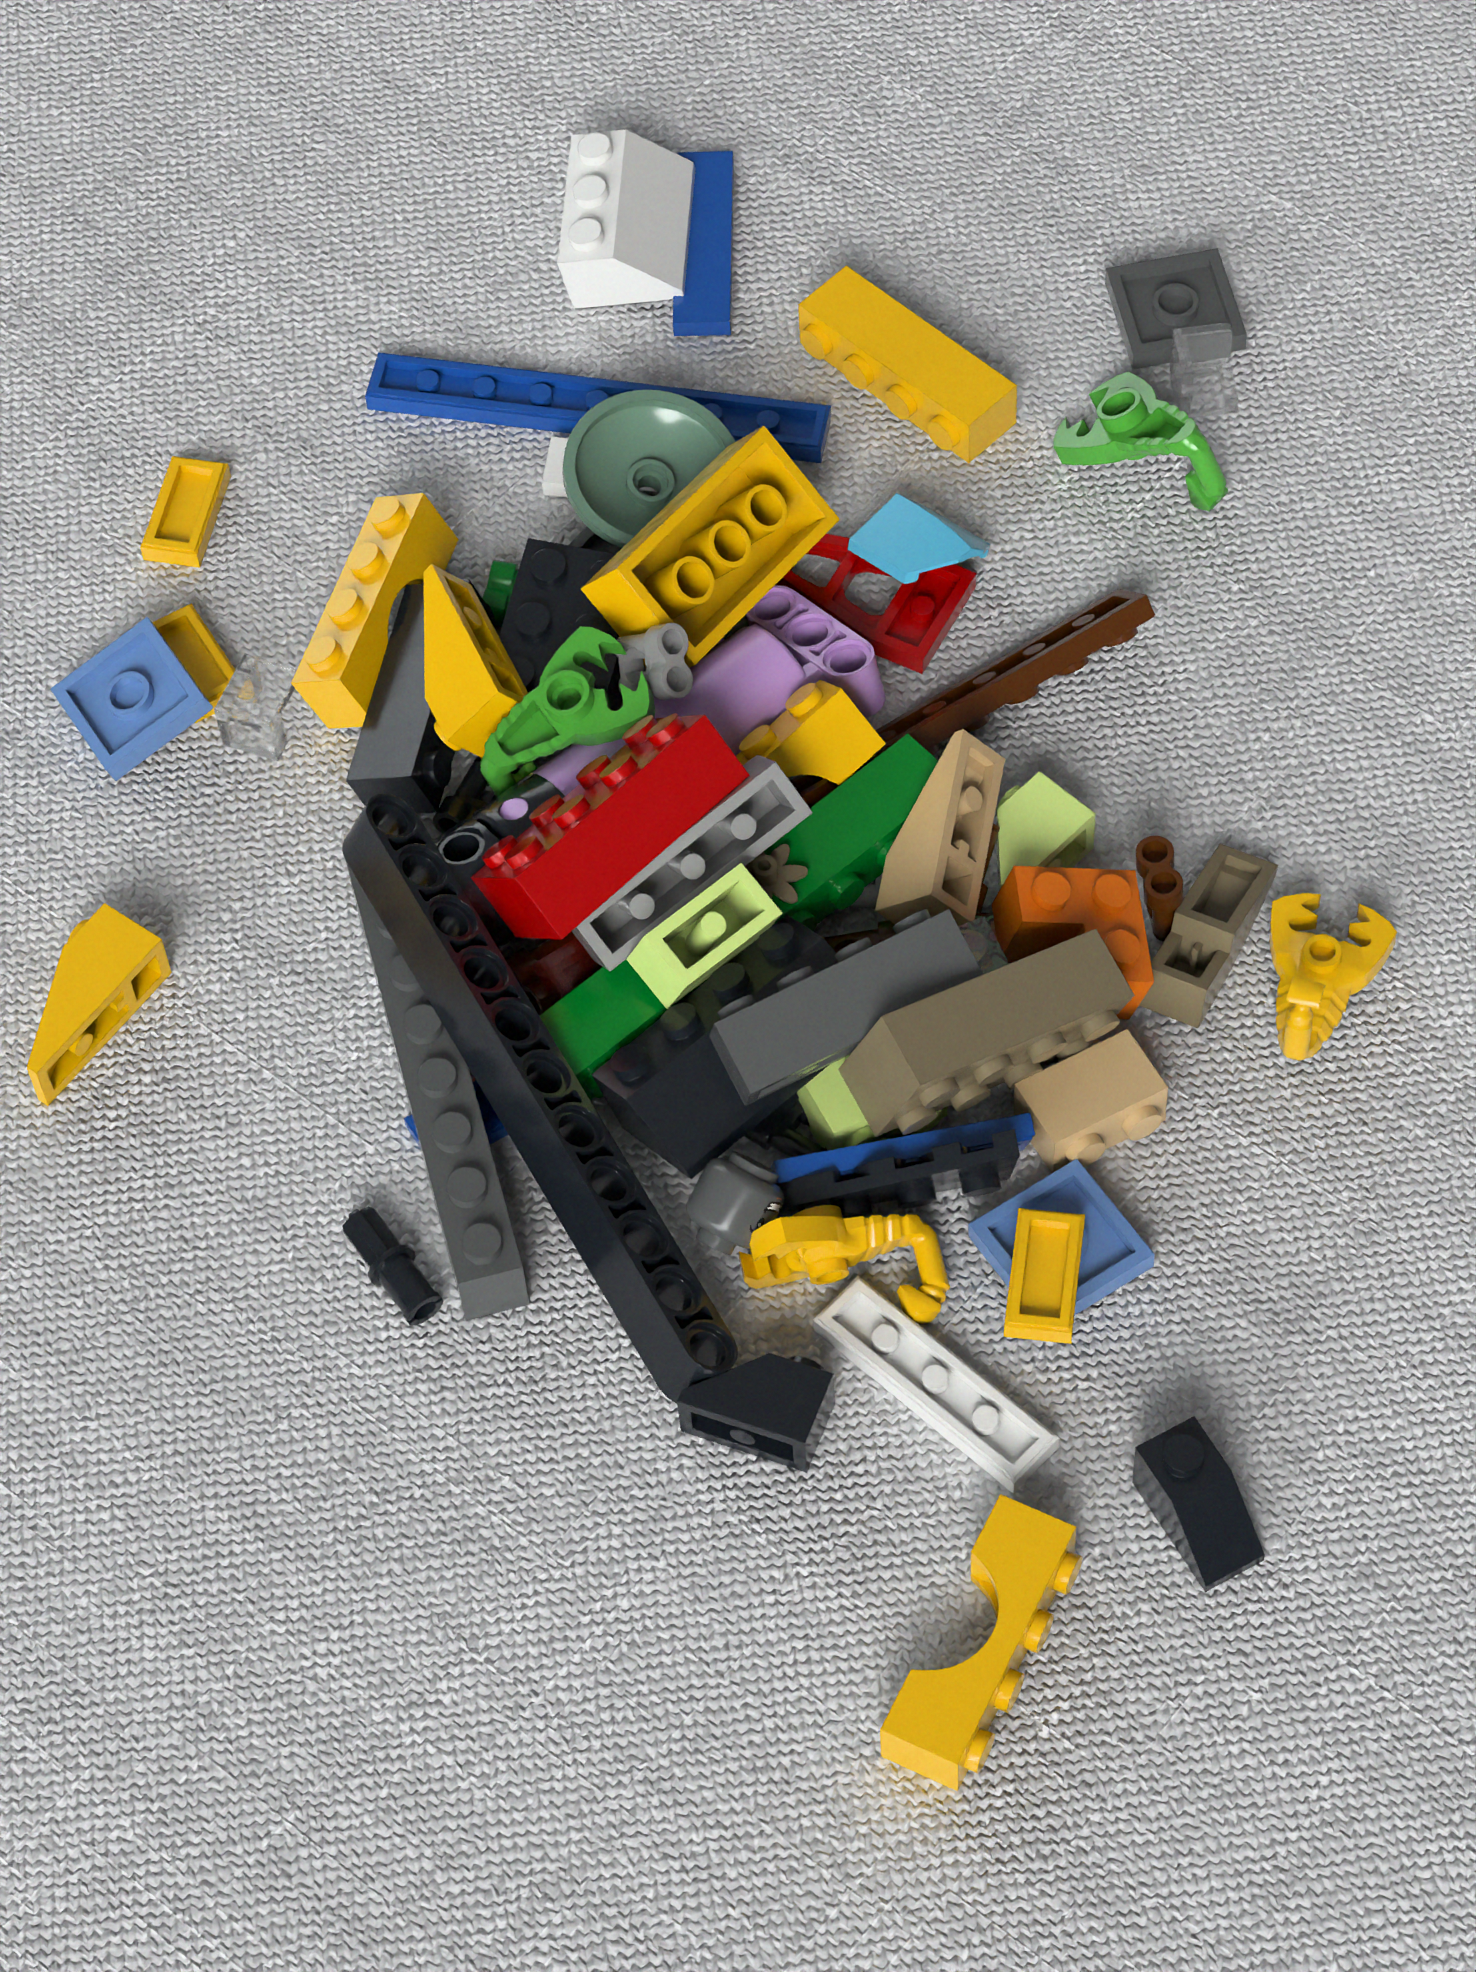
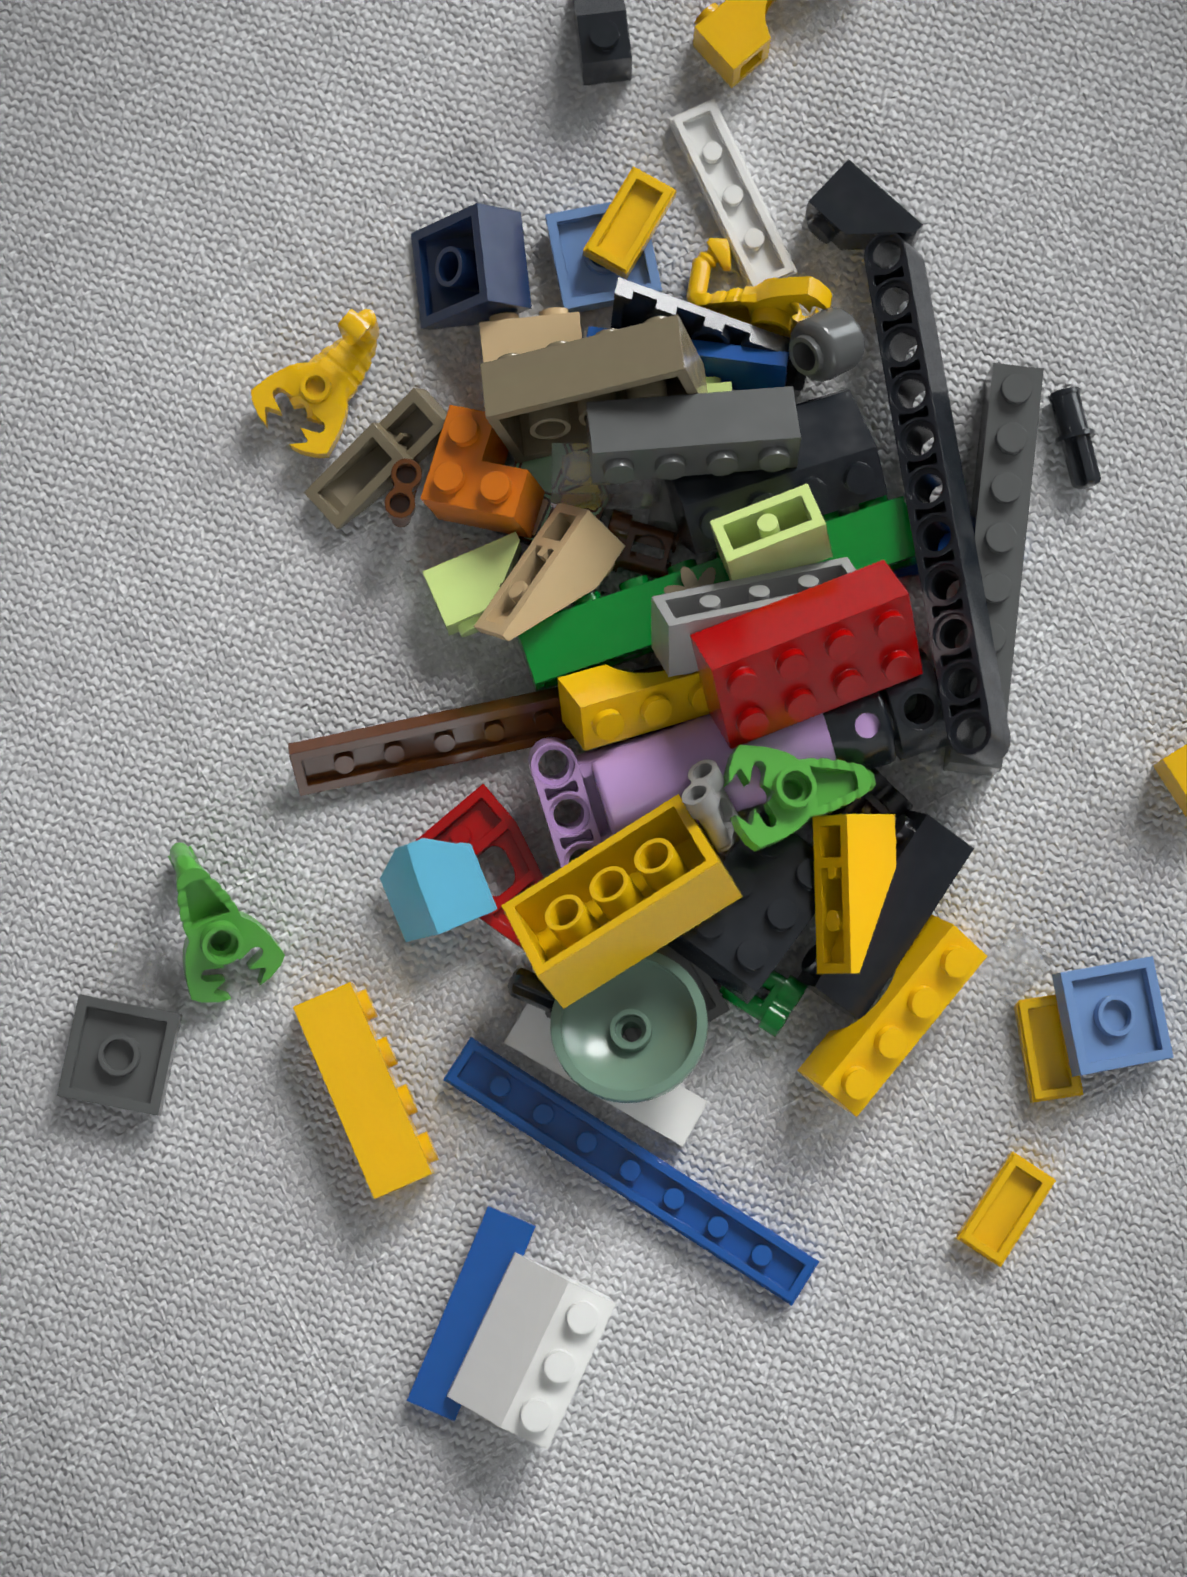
camera: 160 degrees left, 25 degrees up
(1209, 1164) = (470, 267): none -> dark blue slope

